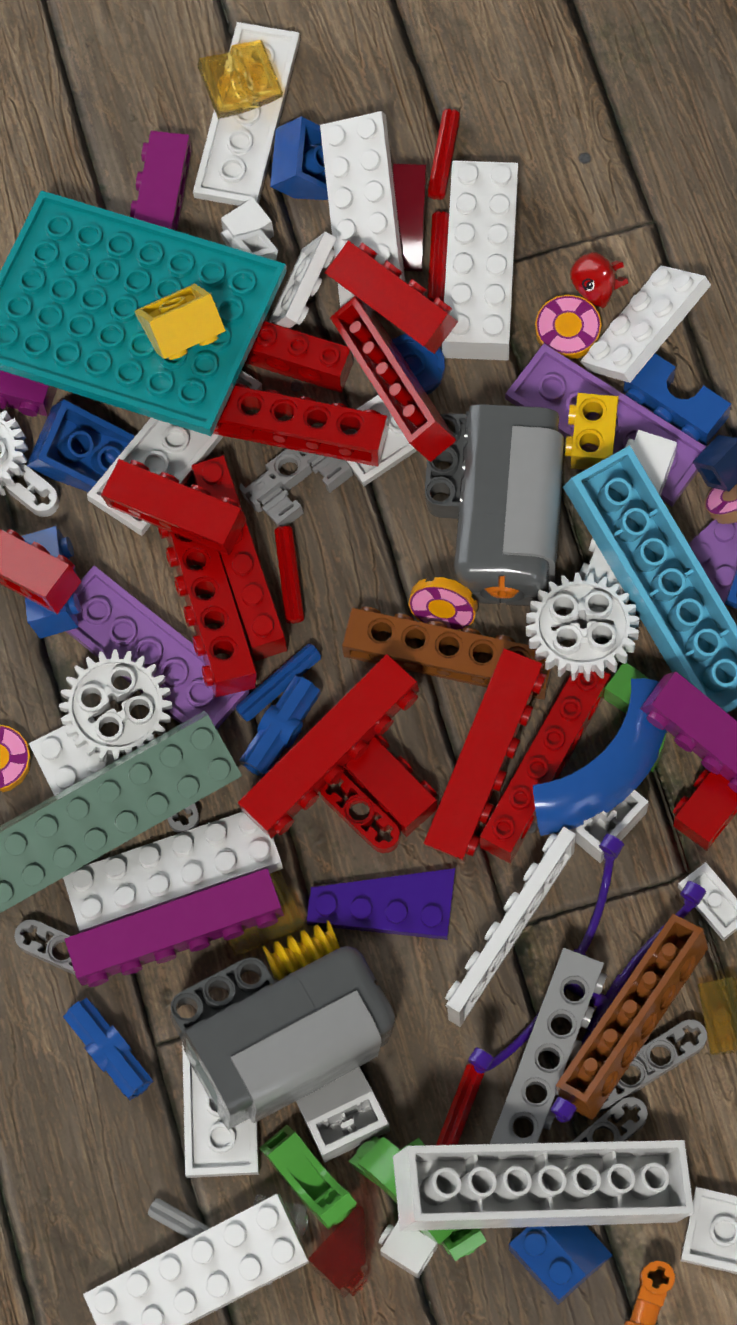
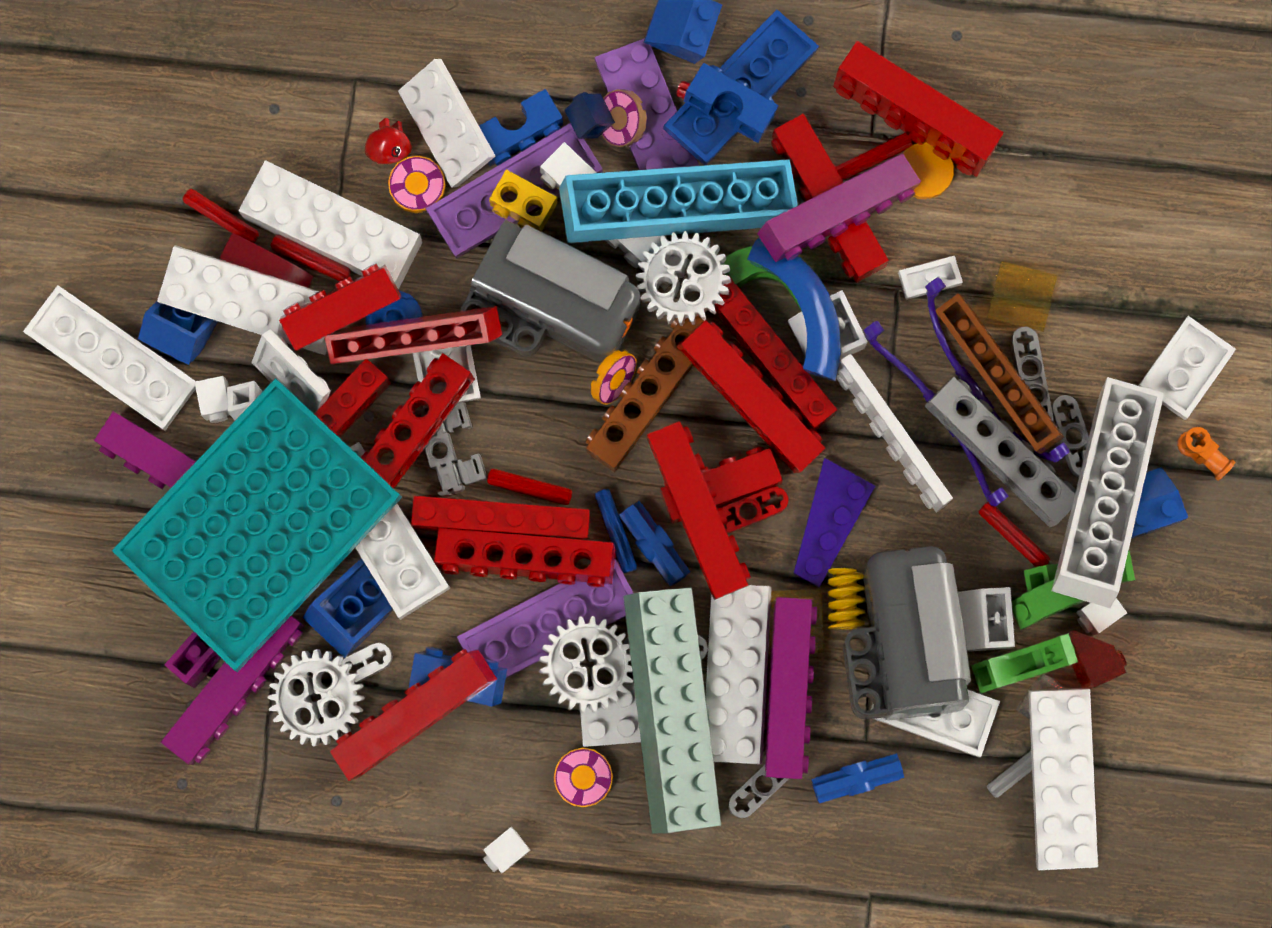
camera: 75 degrees left, 10 degrees up
(174, 506) = (446, 551): red brick -> none
(181, 321) = (294, 480): yellow slope -> none
(240, 79) = (79, 349): clear yellow slope -> none

